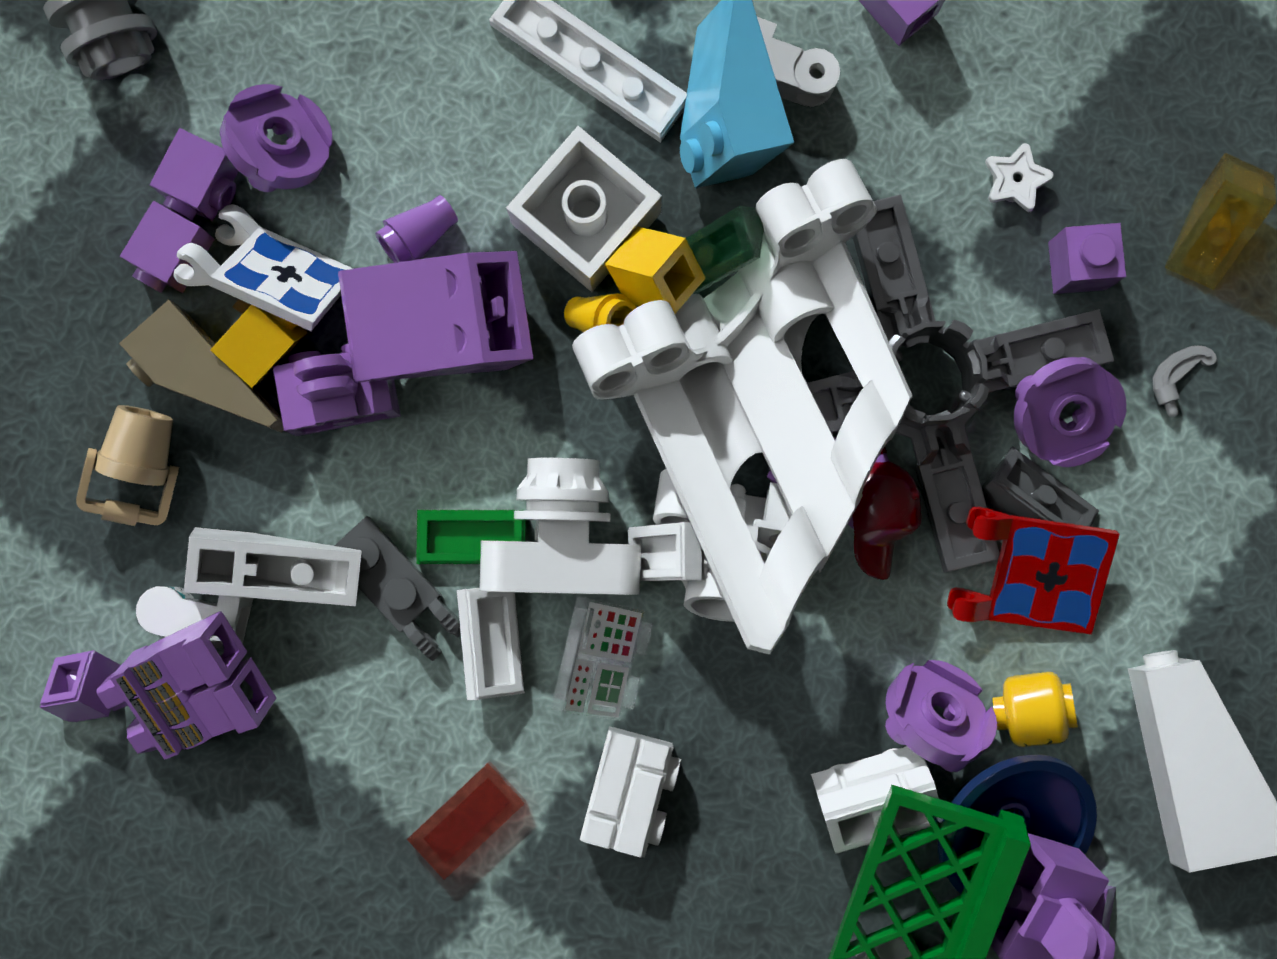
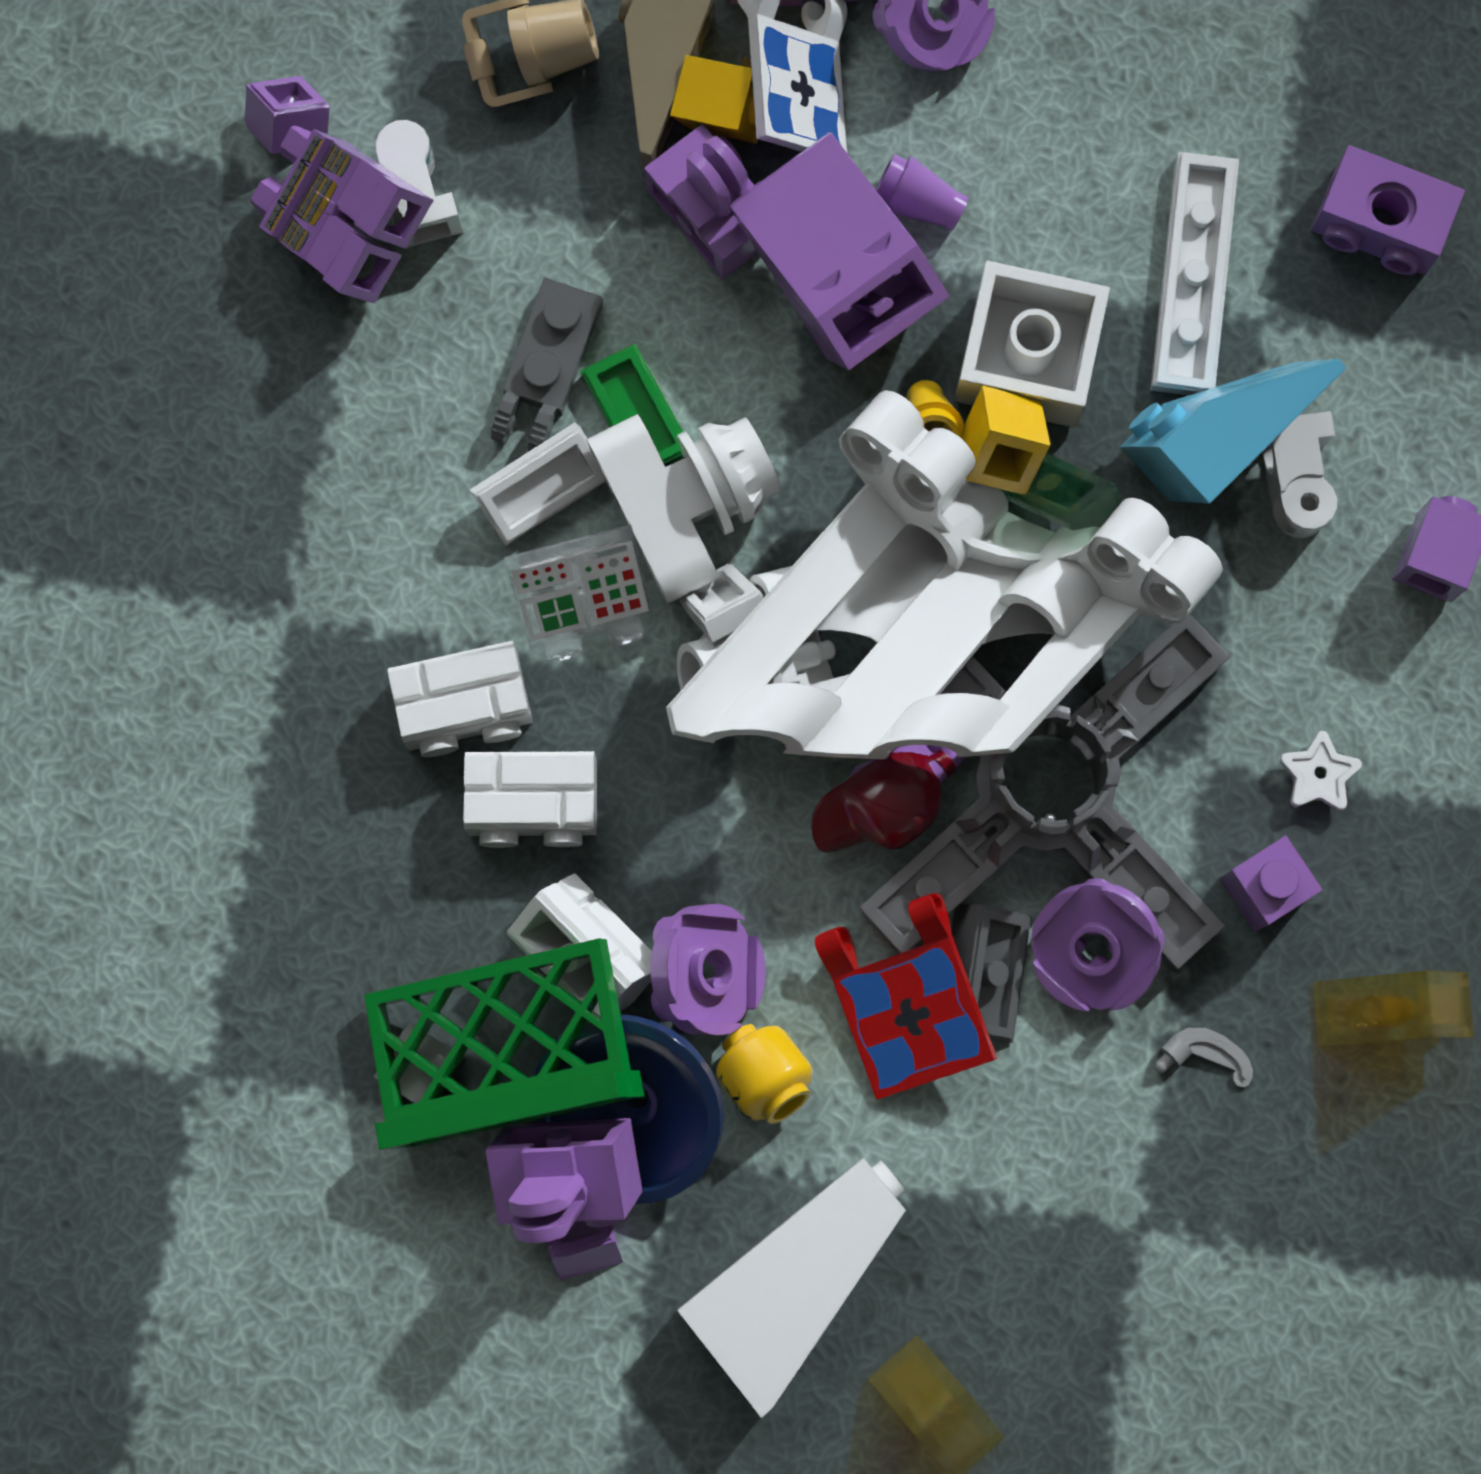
camera: 60 degrees right, 5 degrees down
(270, 568) = (500, 228): white slope -> none
(466, 820) = (348, 556): clear red tile -> none
(733, 778) = (530, 797): none -> white brick

